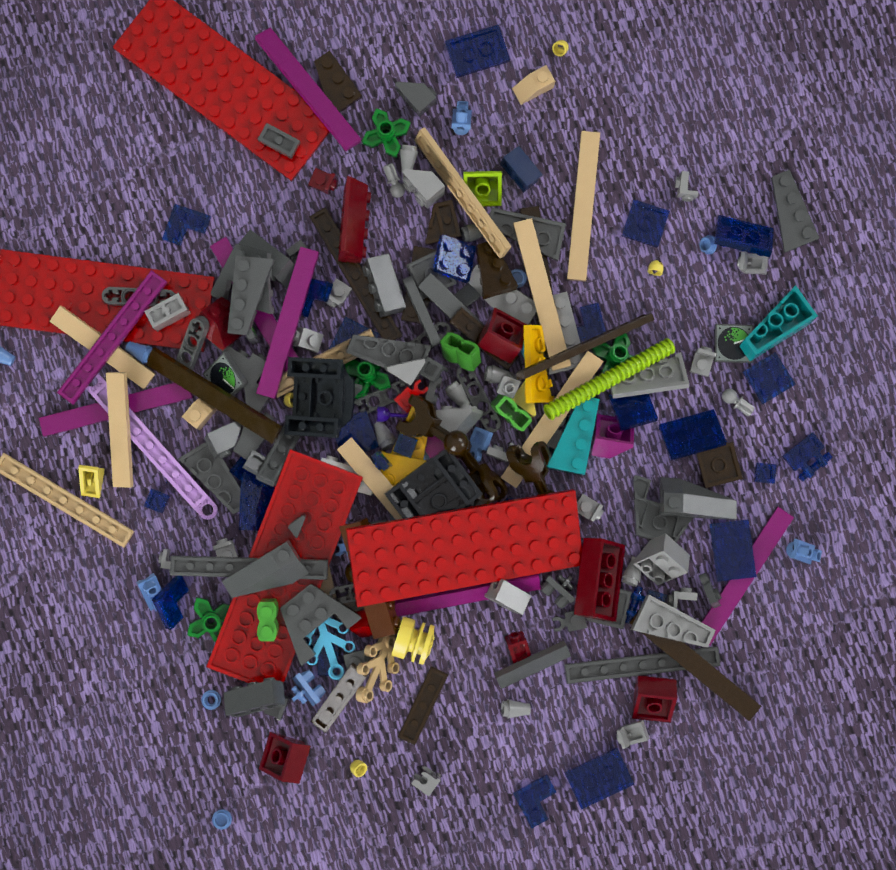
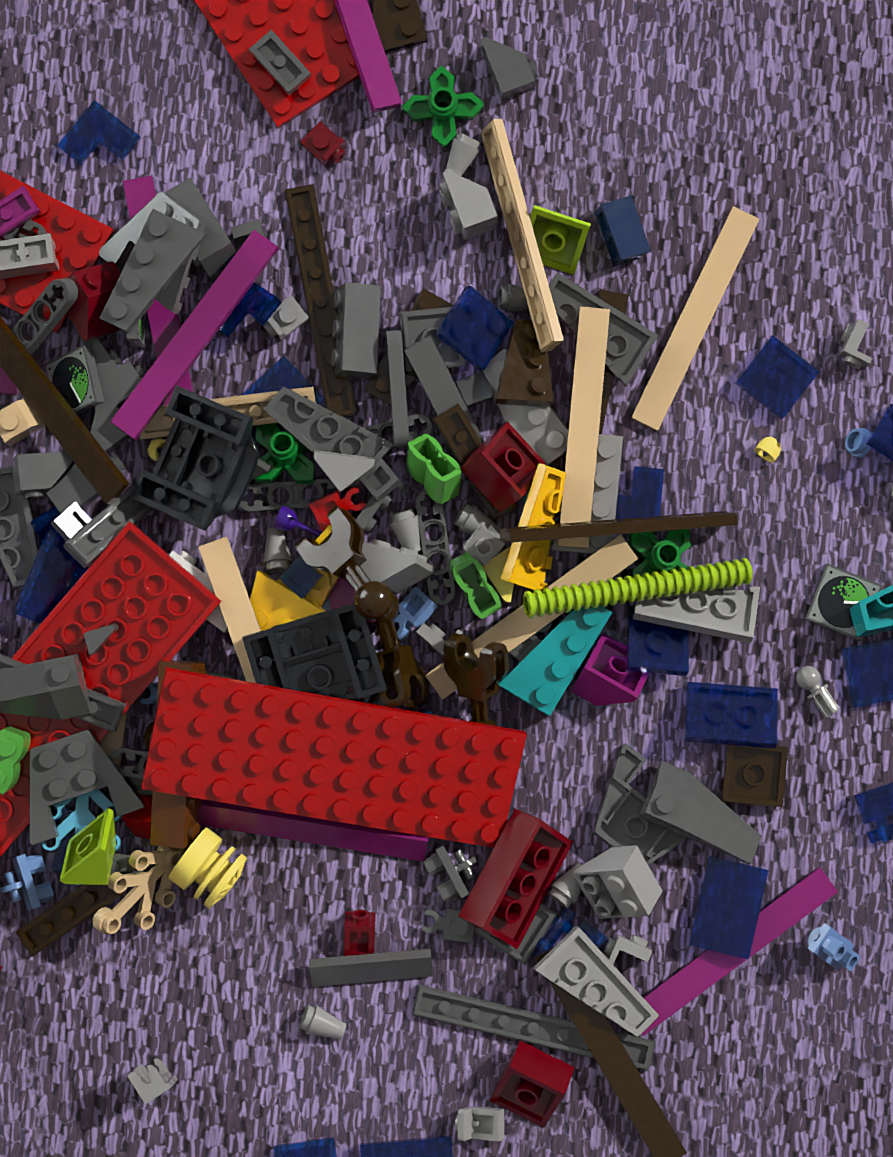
camera: 20 degrees right, 0 degrees up
(307, 339) = (216, 369): light grey bracket -> none
(340, 657) = (91, 852): none -> lime slope
(353, 221) = (345, 220): dark red slope -> none
(358, 768) = (60, 1026): light yellow hinge -> none
(360, 430) = (244, 532): clear blue plate -> none
(381, 461) = (256, 588): clear blue plate -> none
(397, 189) = (428, 195): light grey axle -> none
(422, 705) = (188, 969): dark brown tile -> none
(442, 222) = (477, 268): dark brown wing -> none
(461, 118) = (561, 124): medium blue hips -> none
(477, 51) = (621, 33): clear blue plate -> none
(508, 596) = (371, 854): hinge -> none
(520, 277) = (561, 390): medium blue plate -> none
(534, 85) = (687, 113): tan slope -> none
(560, 51) = (744, 76): light yellow hinge -> none
(589, 508) = (539, 768): light grey bracket -> none
(702, 361) = (787, 612): light grey bracket -> none
(712, 594) = (673, 959): dark grey plate -> none
(765, 473) = (819, 811): clear blue plate -> none

